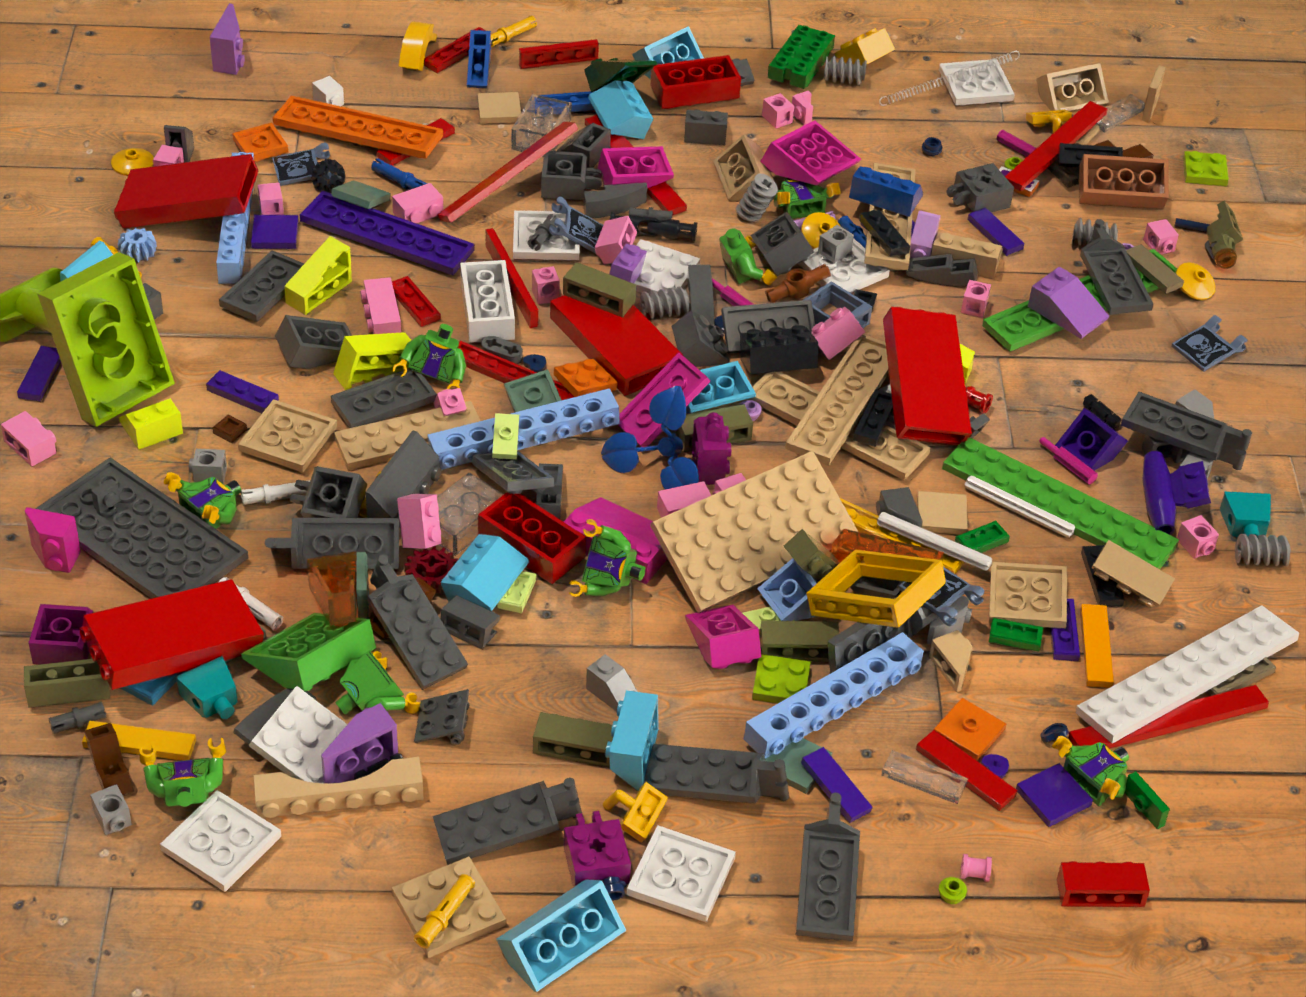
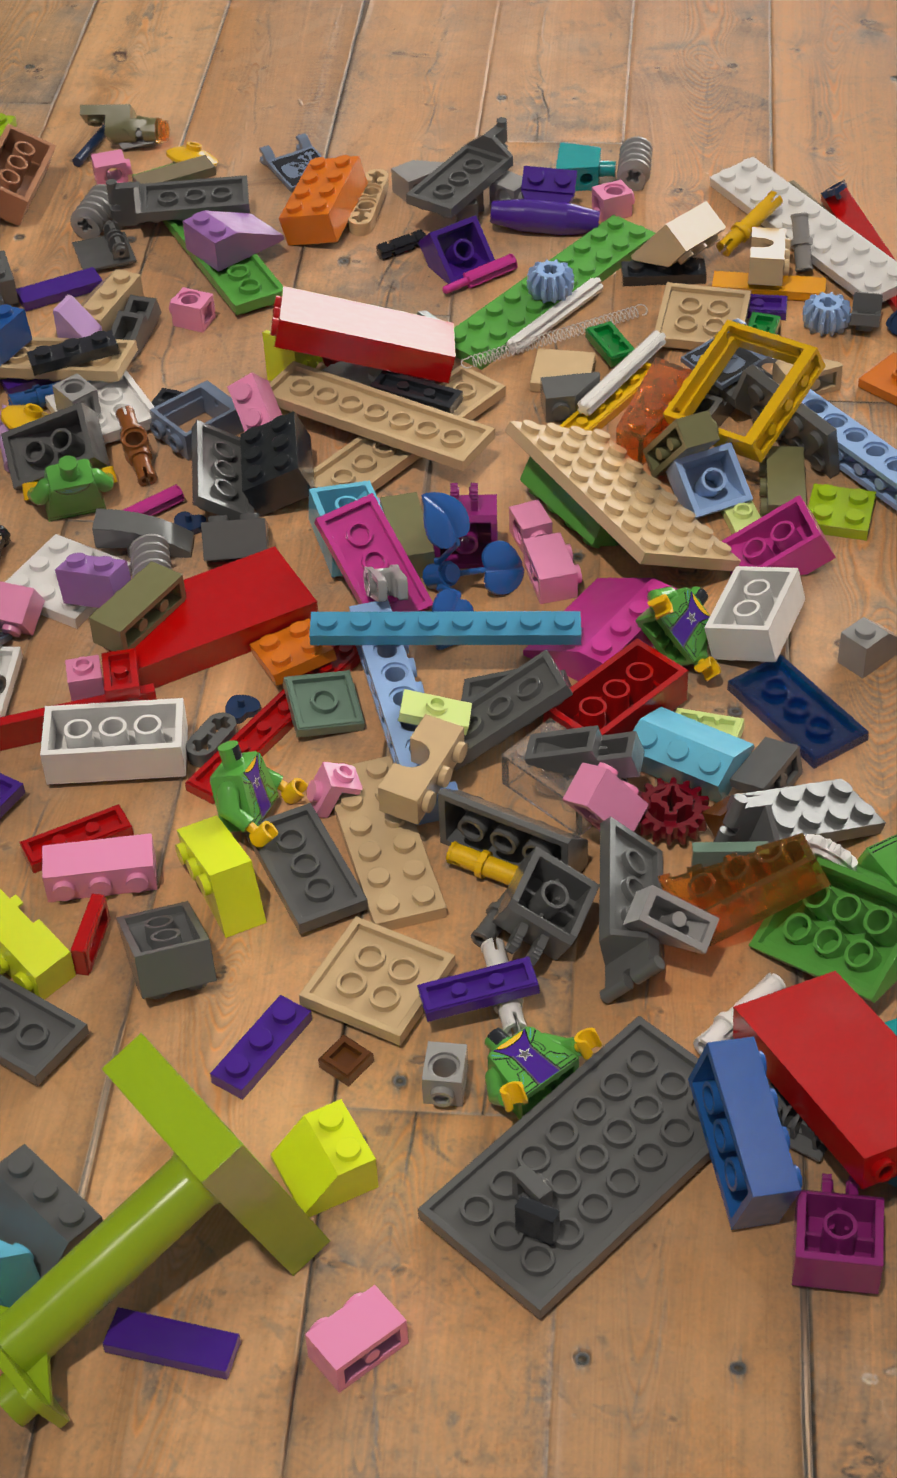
camera: 80 degrees left, 0 degrees up
(53, 538) = (632, 1264): dark pink slope -> none
(84, 499) = (537, 1220): none -> black tile
(132, 577) = (744, 1133): none -> blue brick
(267, 472) = (478, 989): none -> dark purple tile
(302, 544) = (671, 920): none -> light grey slope
(328, 310) = (90, 934): none -> red tile
(360, 638) = (831, 851): none -> white gear
(454, 504) = (567, 749): none -> dark grey slope
(462, 436) = (414, 790): none -> tan arch
(536, 289) = (120, 675): none -> red plate
(544, 646) = (798, 711): none -> clear blue tile
(587, 437) = (446, 628): none -> dark azure plate
(629, 402) = (385, 582): none -> light grey piece
(629, 610) = (755, 613): none -> white brick
(983, 505) = (620, 318): none -> white piece
(1043, 488) = (550, 281): none -> light blue gear
(1051, 248) = (105, 251): none -> dark grey hinge
(1052, 678) = (826, 313): none -> light blue gear
(1057, 706) = (866, 310): none -> dark grey bracket
(1105, 633) = (769, 256): none -> tan arch
(1129, 385) = (369, 203): none -> tan beam
(1140, 354) = (323, 200): none -> orange brick
(1149, 656) = (801, 242): none -> light grey pin
(1168, 621) = (742, 230): none -> yellow pin
(1250, 687) = (834, 190): none -> dark blue piece

